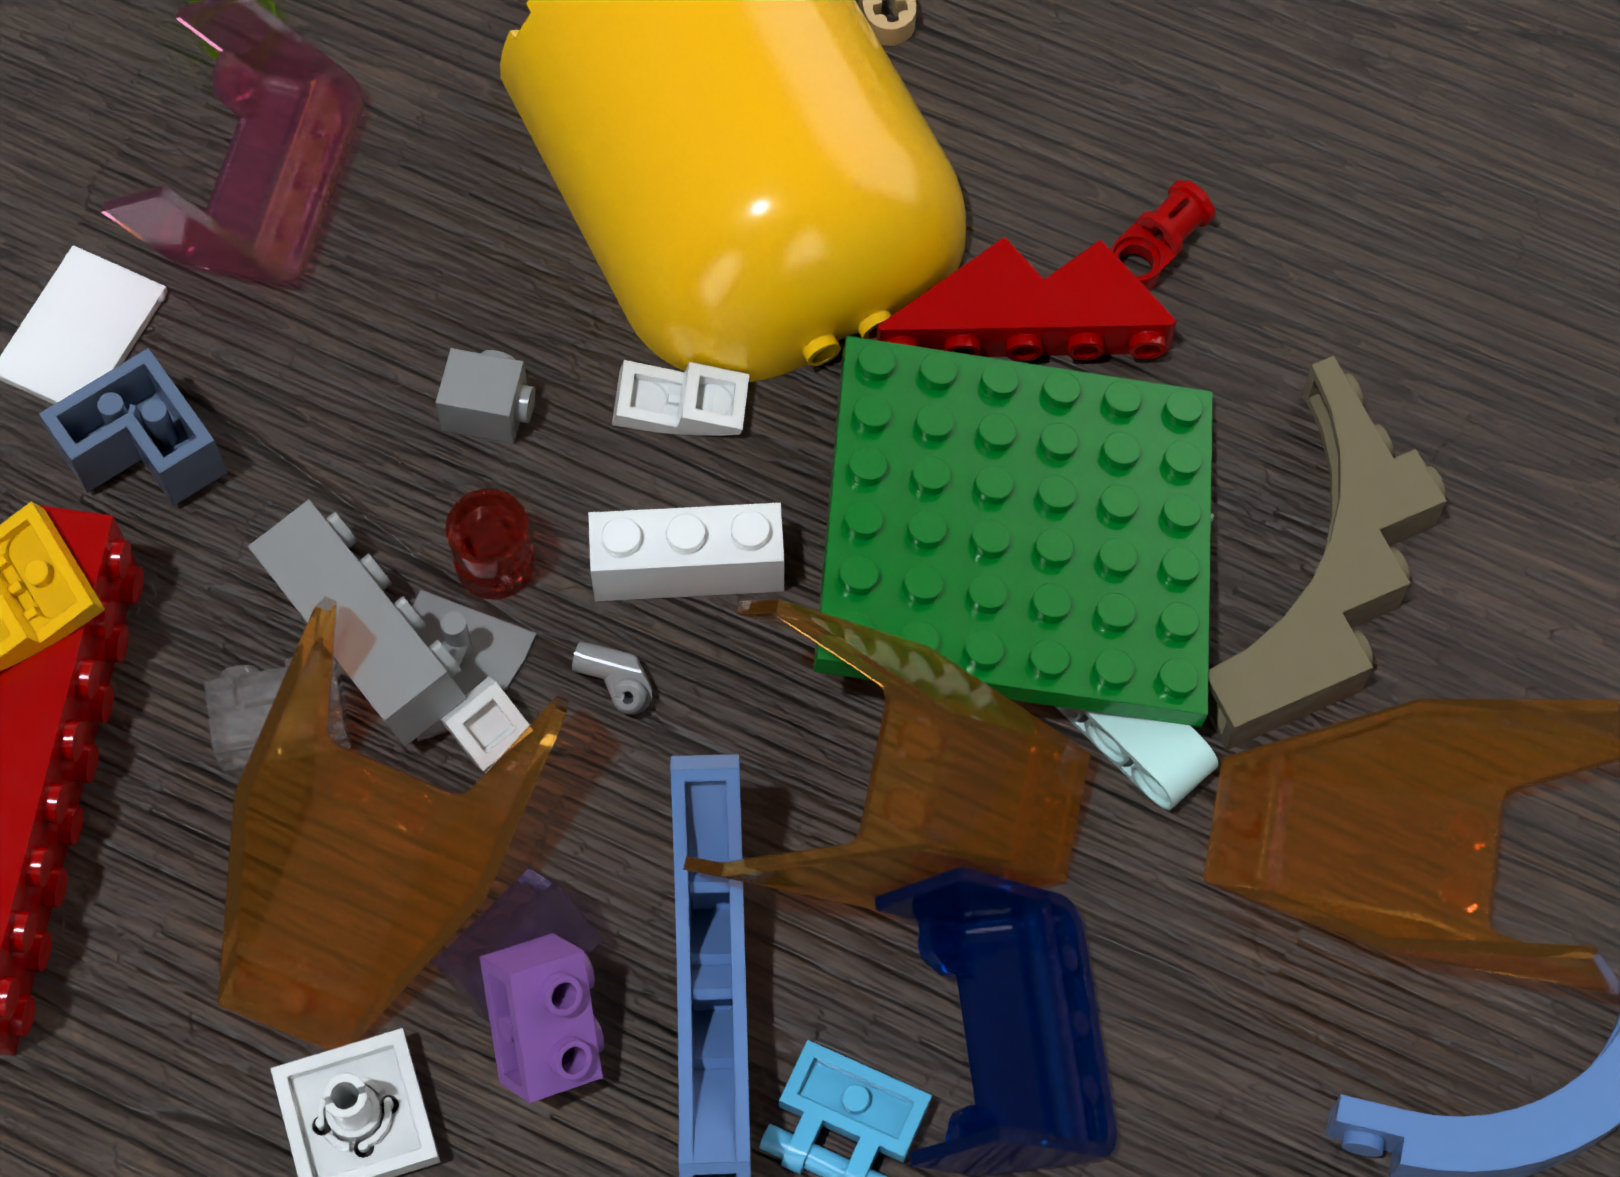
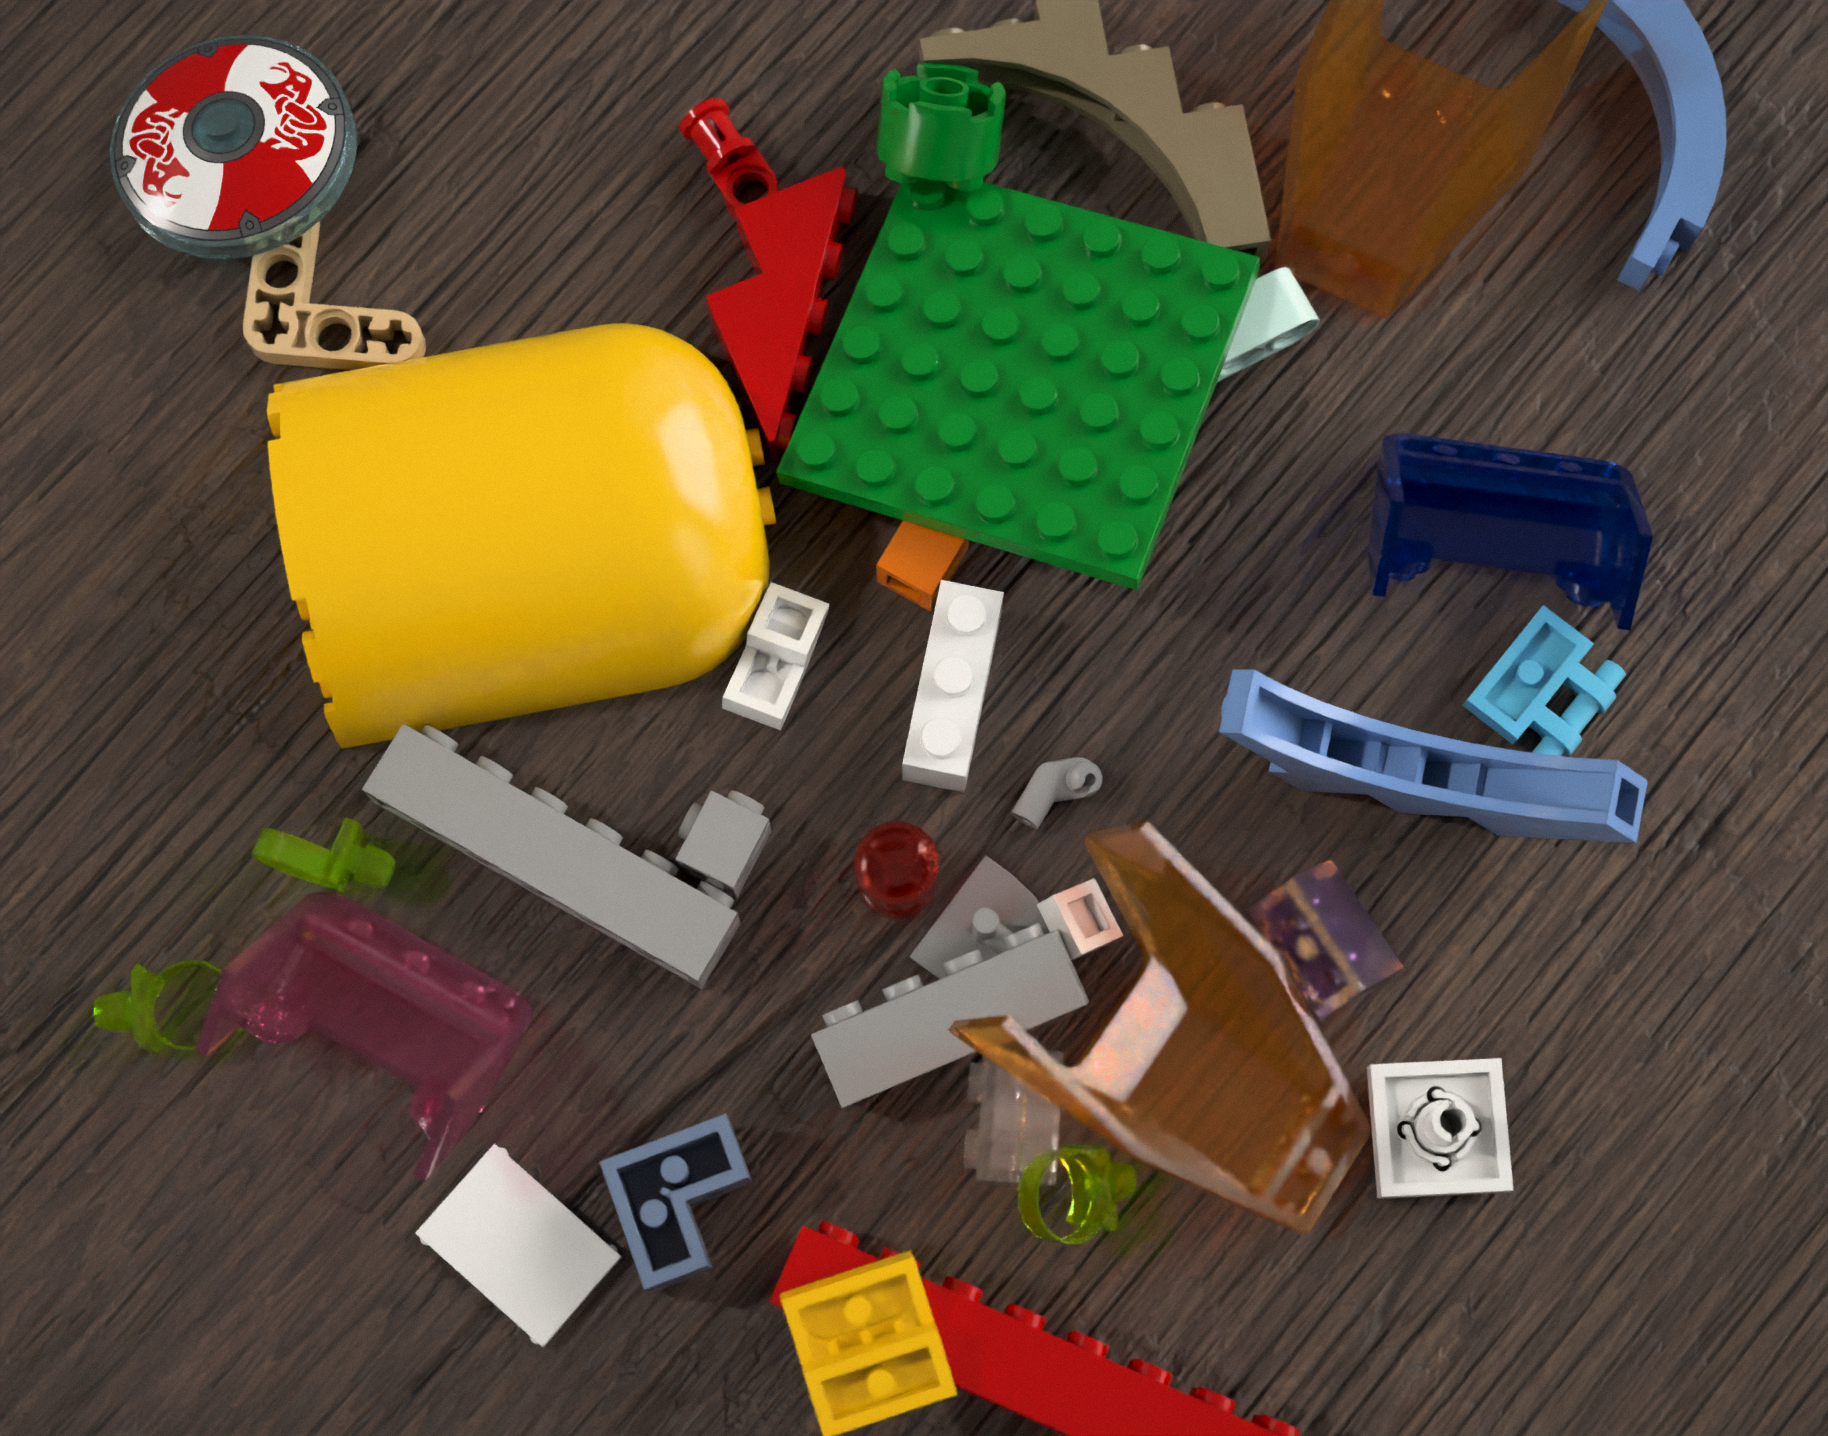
camera: 75 degrees left, 10 degrees up
(203, 800) = (1094, 1190): none -> clear neon green piece
(390, 92) = (326, 867): none -> clear neon green piece
(436, 261) = (554, 855): none -> light grey brick
(542, 1017) = (1406, 927): medium lavender brick -> none
(804, 491) = (919, 561): none -> orange brick
(950, 781) = (1296, 480): clear orange windscreen -> none
(1247, 393) = (940, 126): none -> green brick

